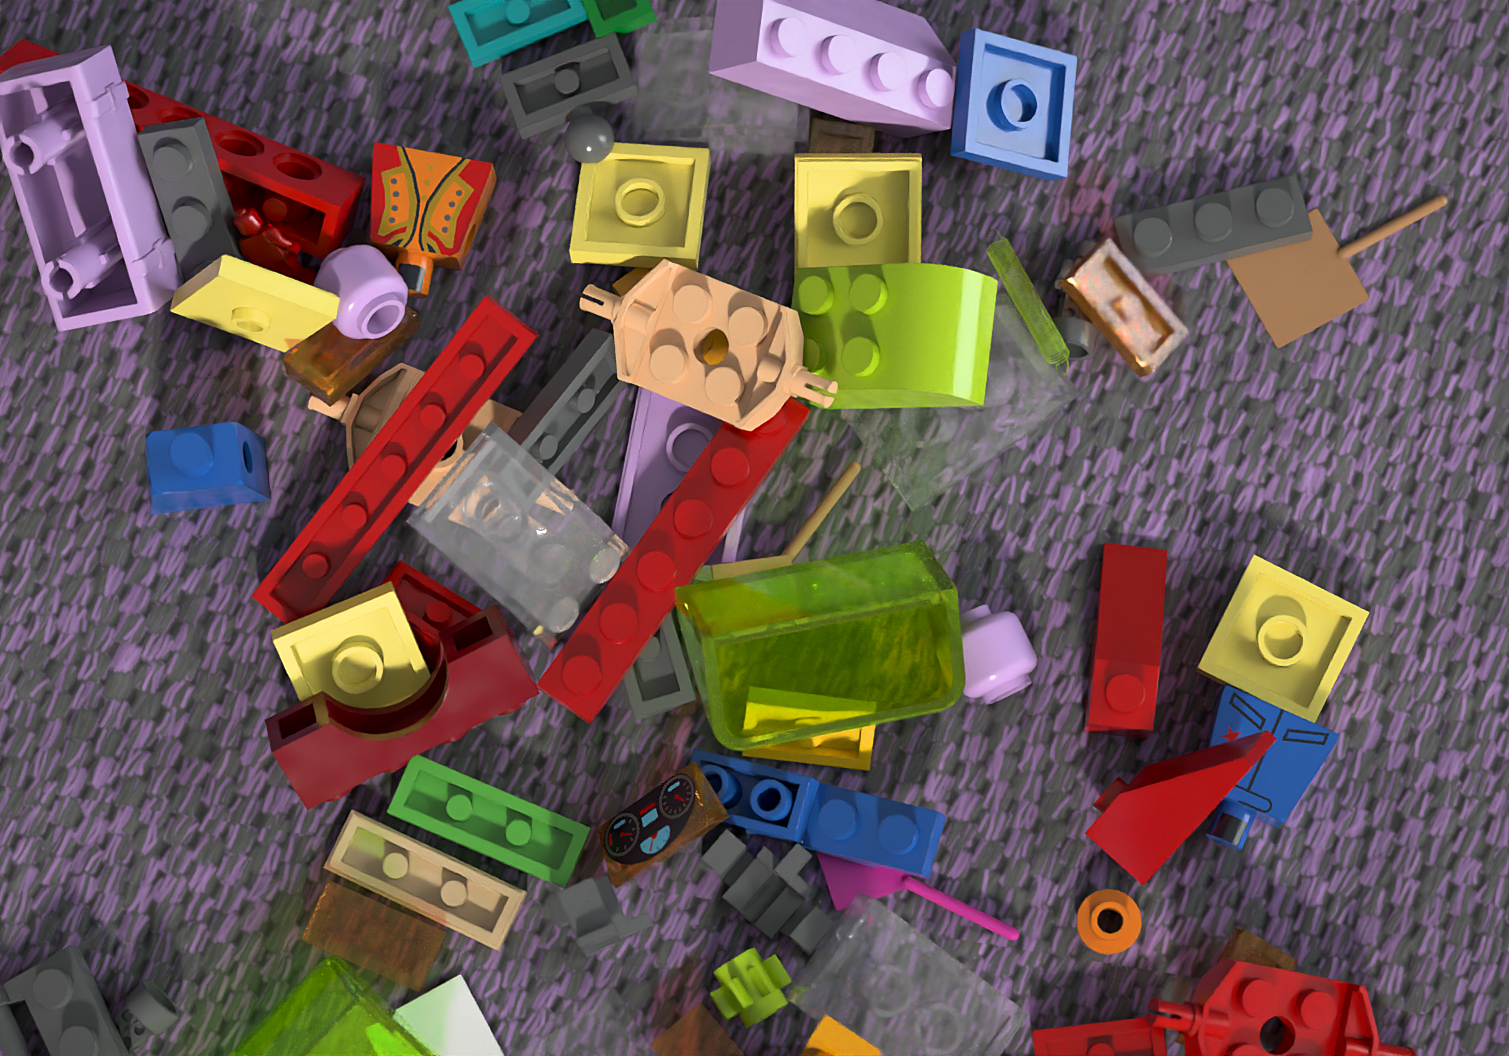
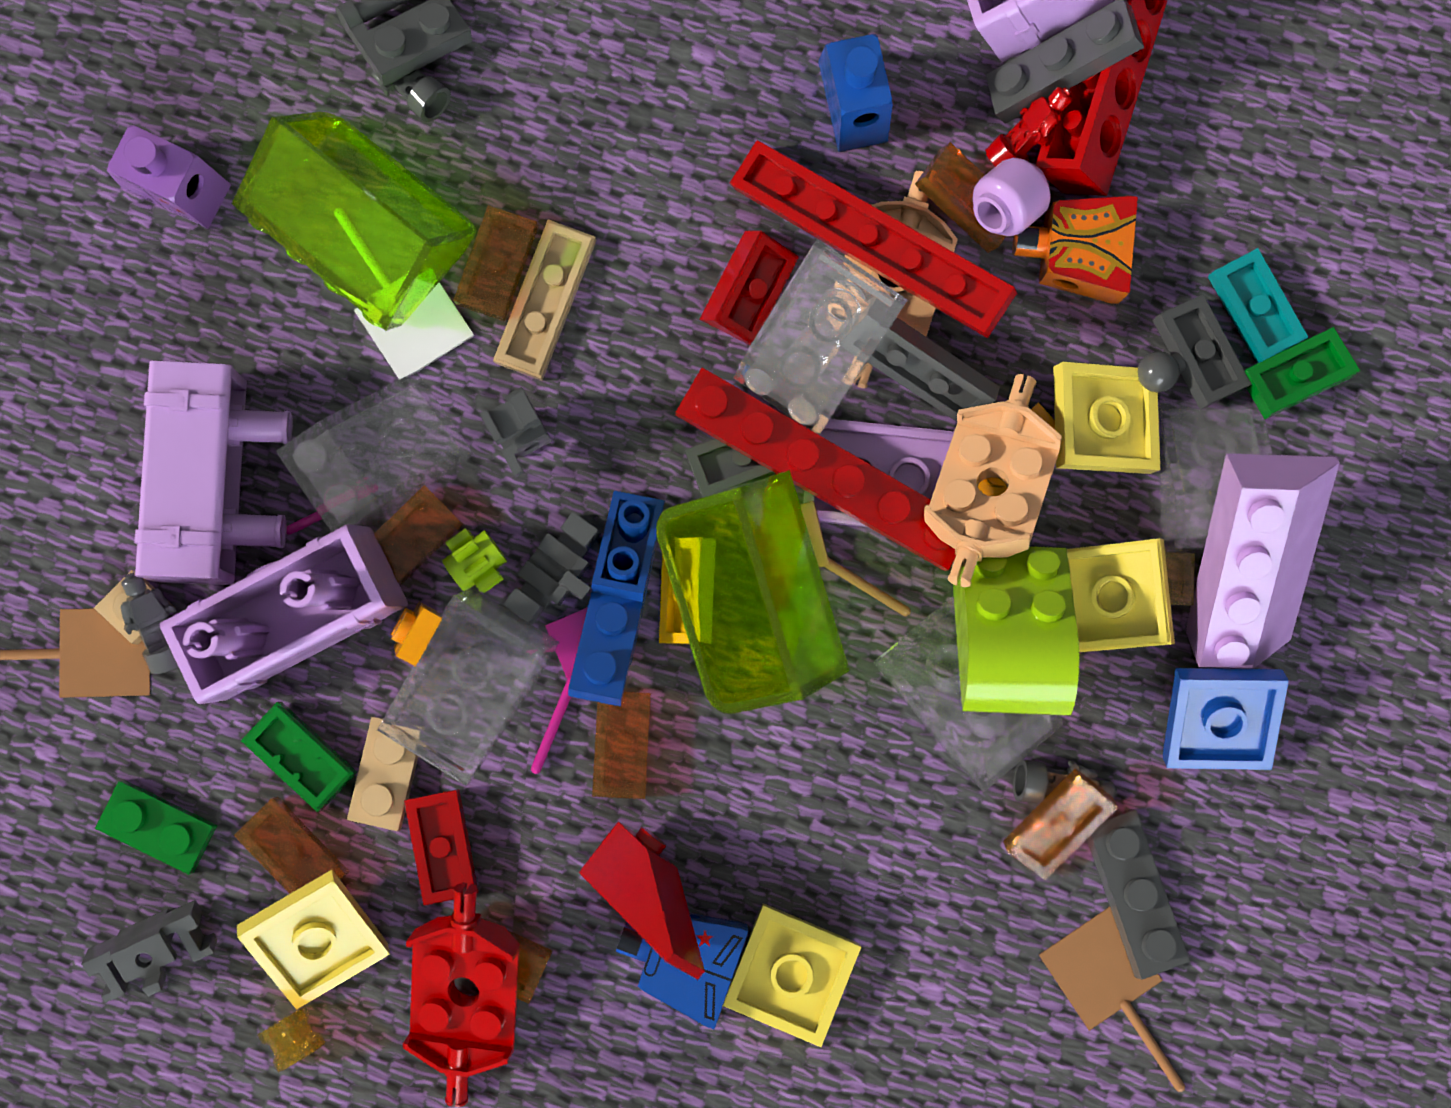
camera: 80 degrees right, 5 degrees up
(255, 303) = (993, 110): light yellow plate -> none
(337, 746) = (640, 212): dark red arch -> none
(354, 651) = (707, 224): light yellow plate -> none
(489, 821) = (593, 344): bright green plate -> none
(659, 825) = (598, 477): slope -> none
(995, 654) = (761, 736): lavender head -> none
(996, 823) = (622, 747): none -> clear orange plate
(1037, 296) = (1023, 763): lime piece -> none
(1088, 927) = (566, 839): orange plate -> none
(1126, 642) = (781, 845): red slope -> none

